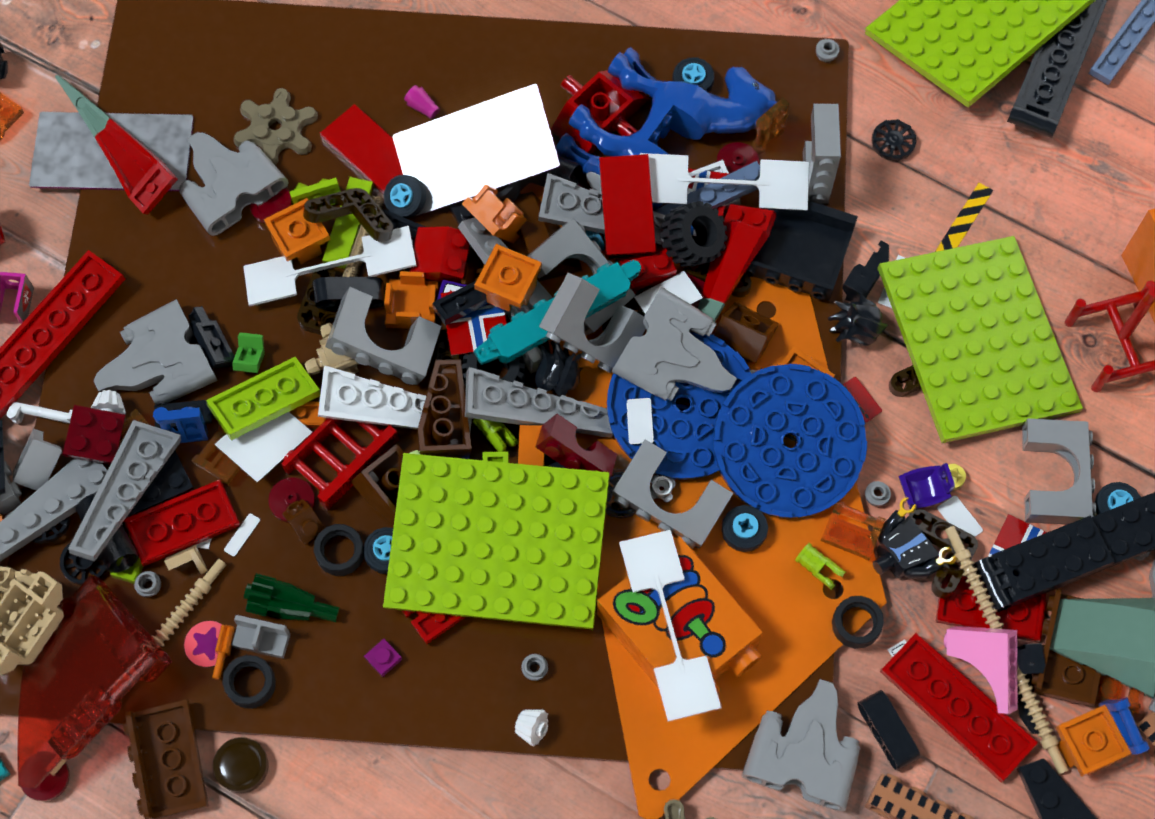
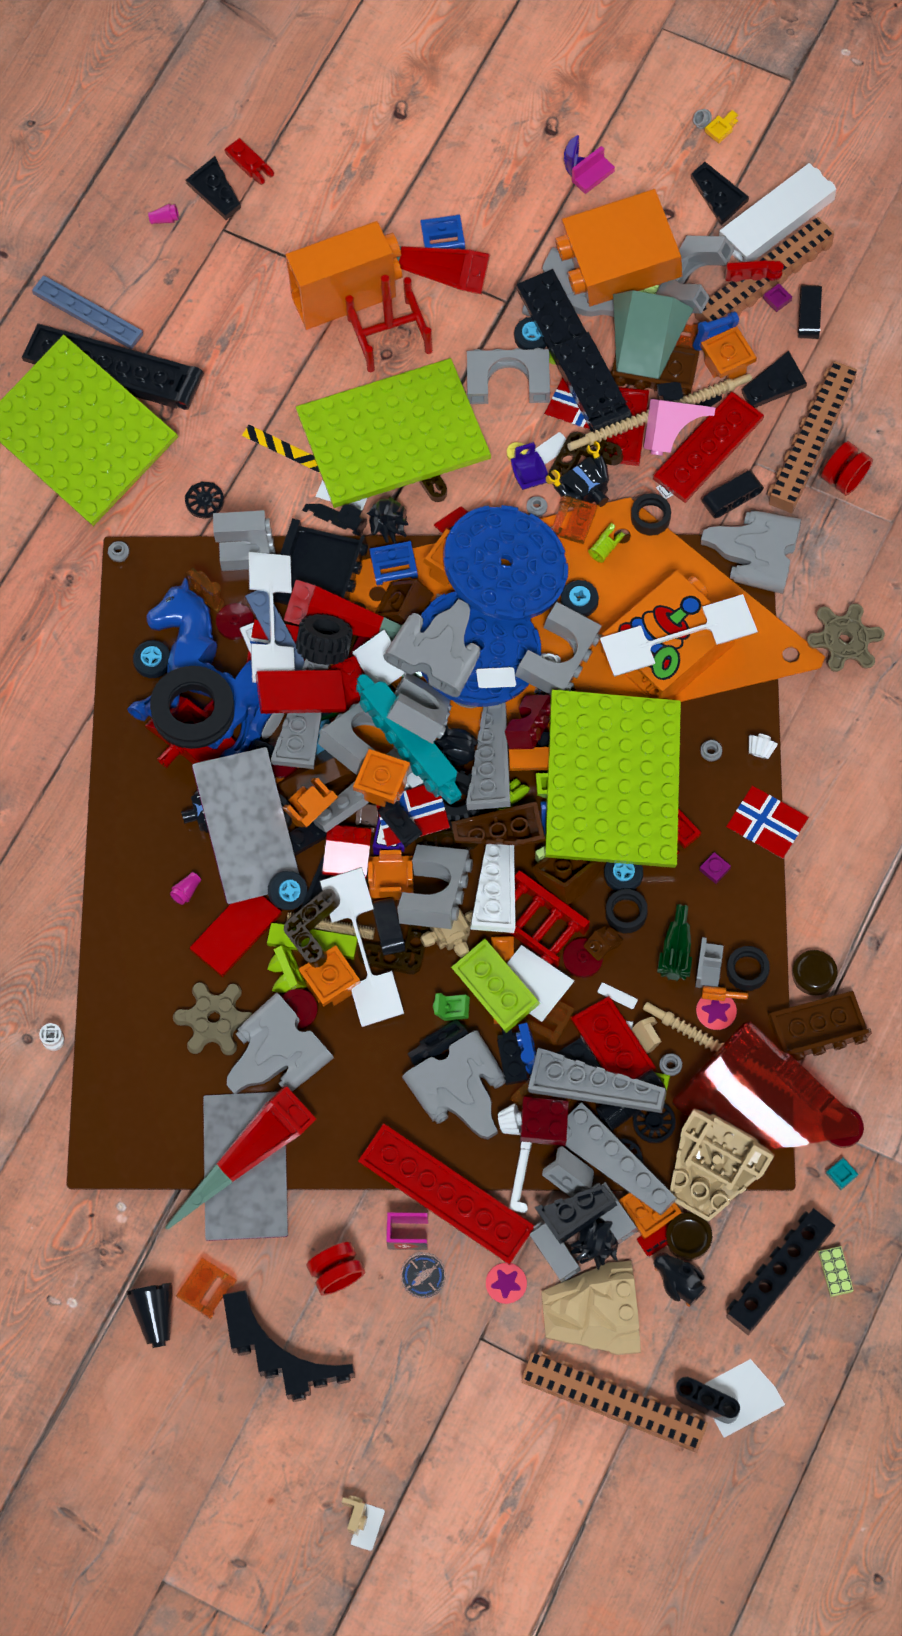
camera: 90 degrees left, 0 degrees up
(437, 727) = (767, 822): none -> sticker
(614, 60) = (184, 680): none -> black tyre
(809, 323) = (390, 557): none -> blue plate

